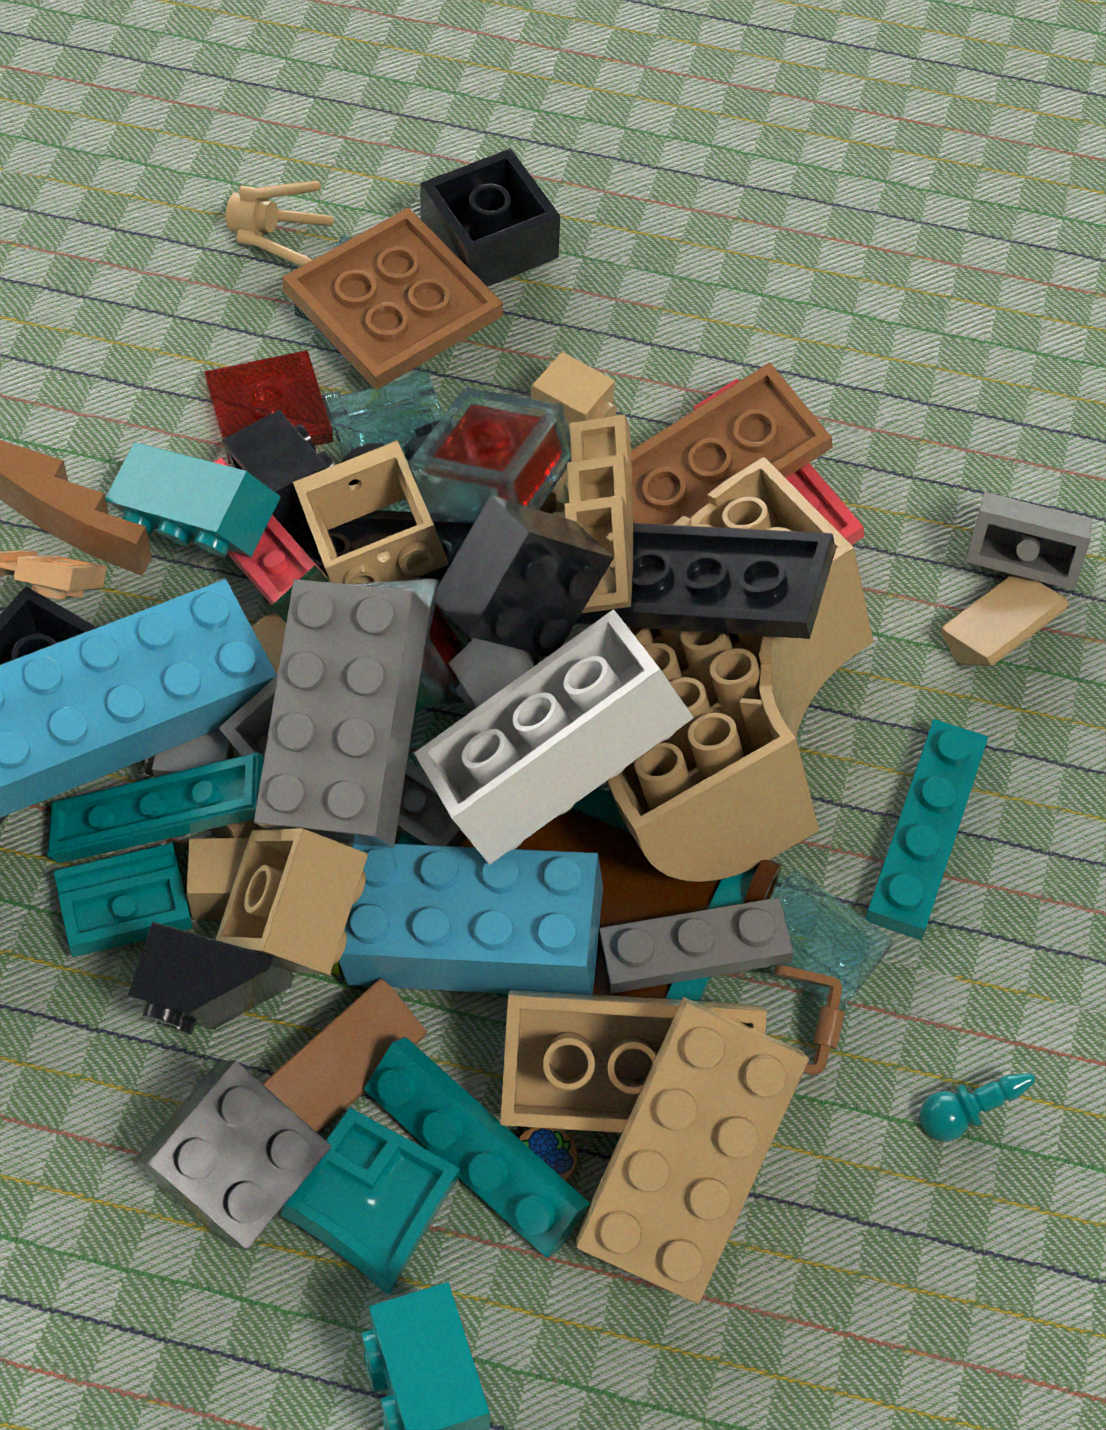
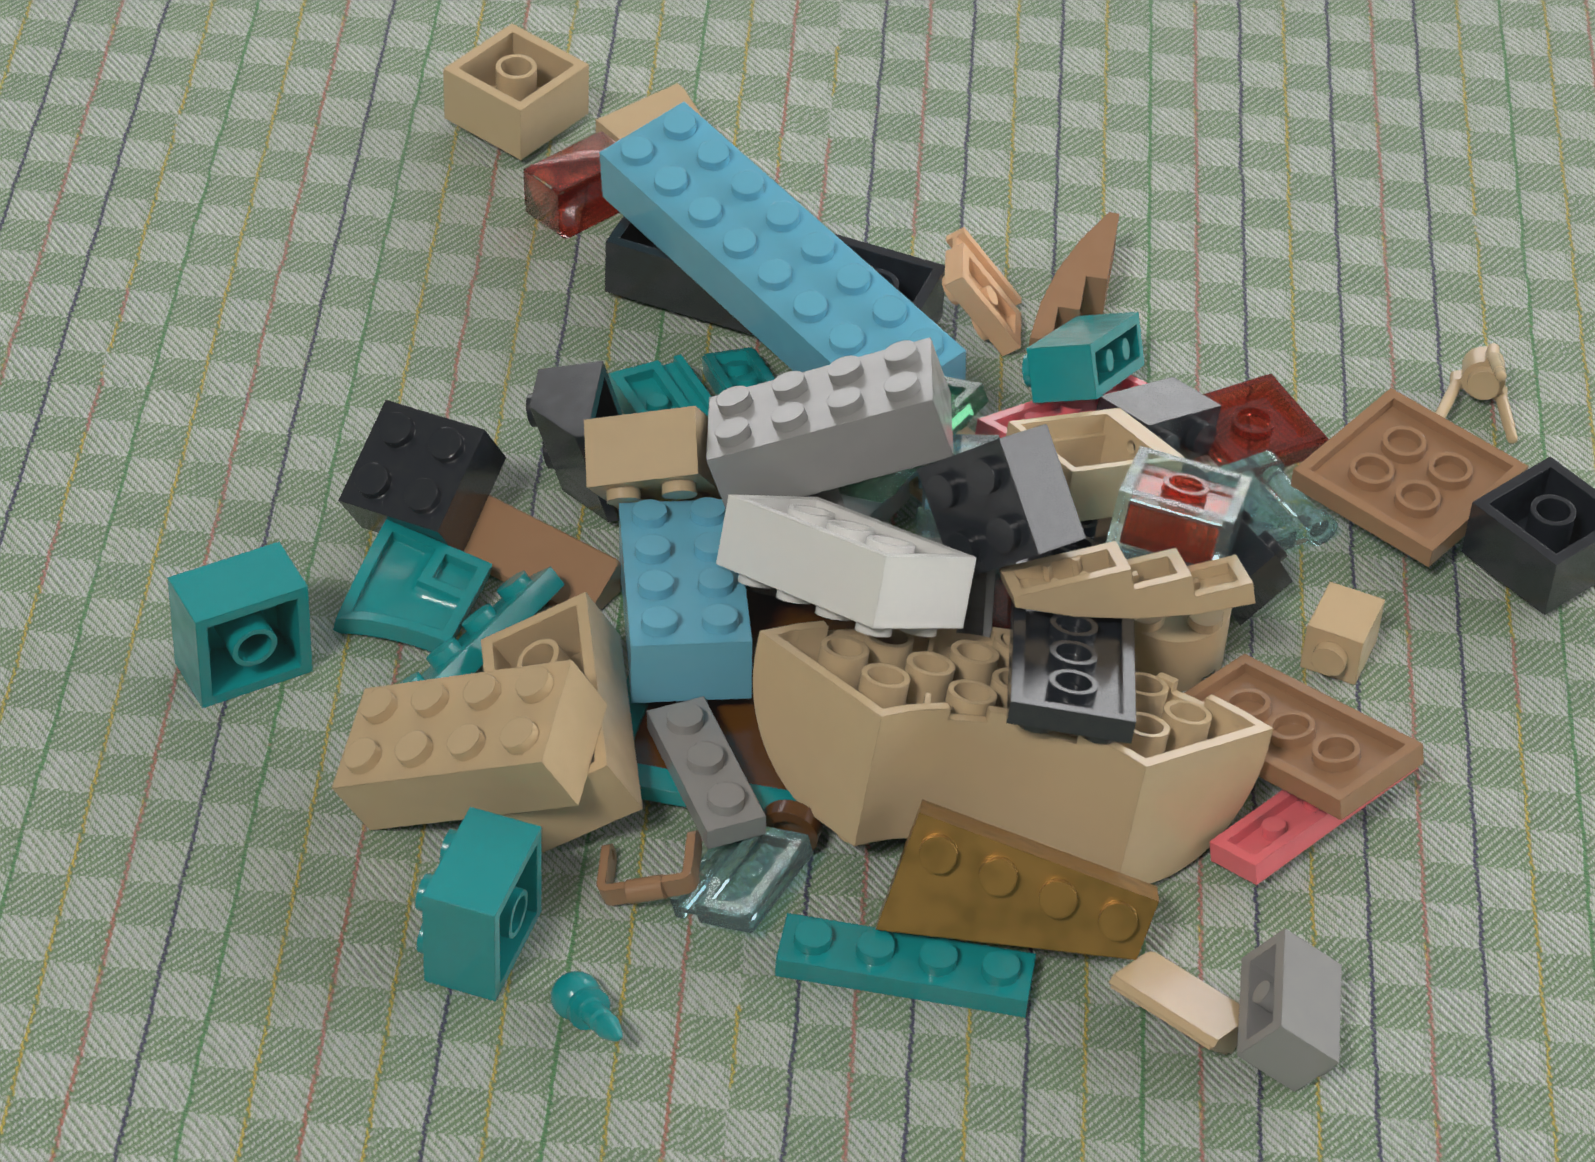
camera: 80 degrees right, 15 degrees down
(872, 1173) = (480, 903): none -> teal brick
(888, 718) = (1009, 890): none -> pearl gold wedge

